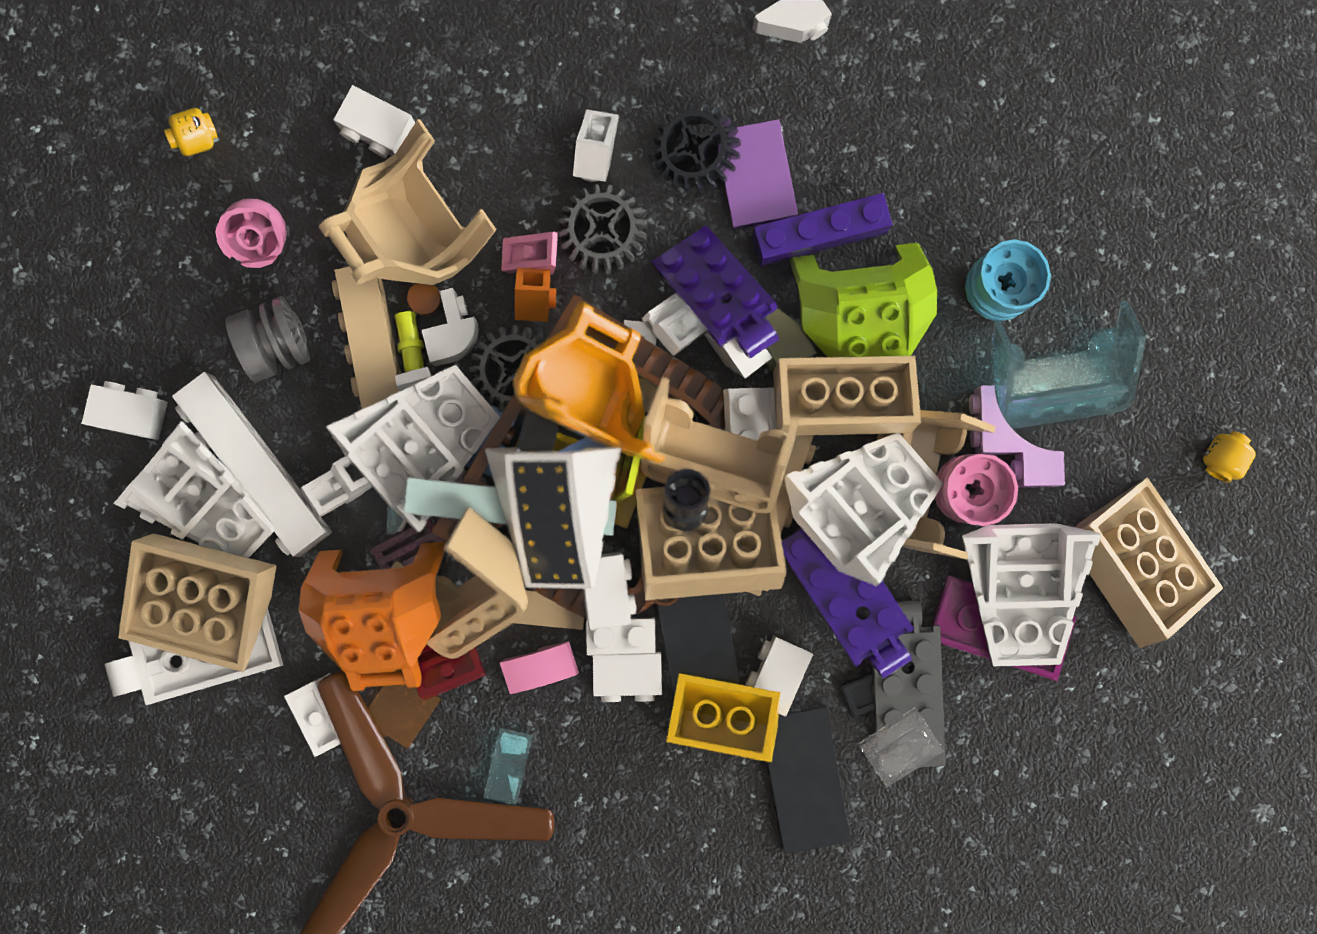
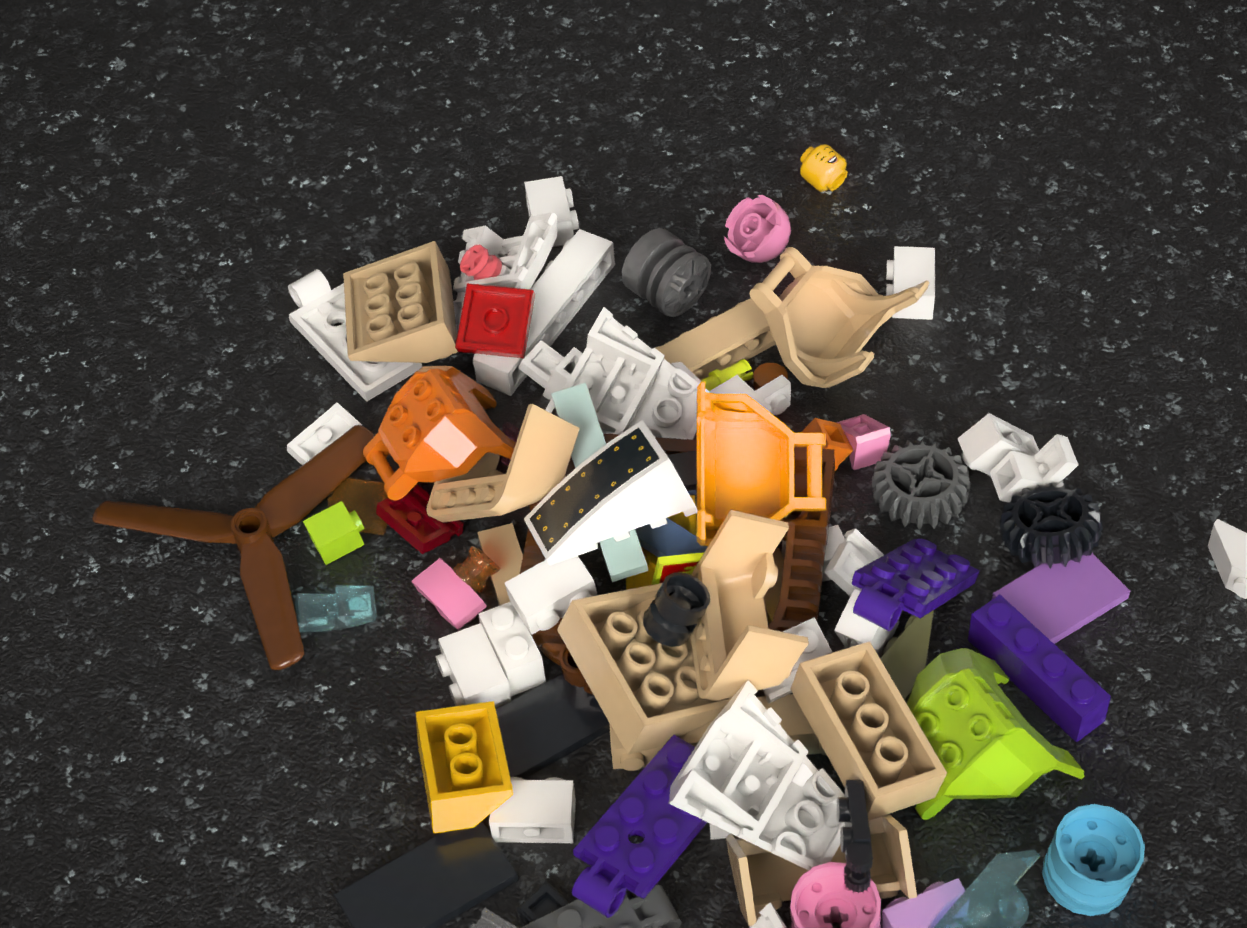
camera: 75 degrees right, 35 degrees down
(178, 507) = (479, 263): none -> coral wheel
(266, 522) = (495, 320): none -> red tile
(432, 744) = (335, 532): none -> lime brick
(530, 637) = (476, 569): none -> clear orange wheel
(638, 131) = (1024, 471): none -> white brick
(943, 450) = (855, 836): none -> black hinge

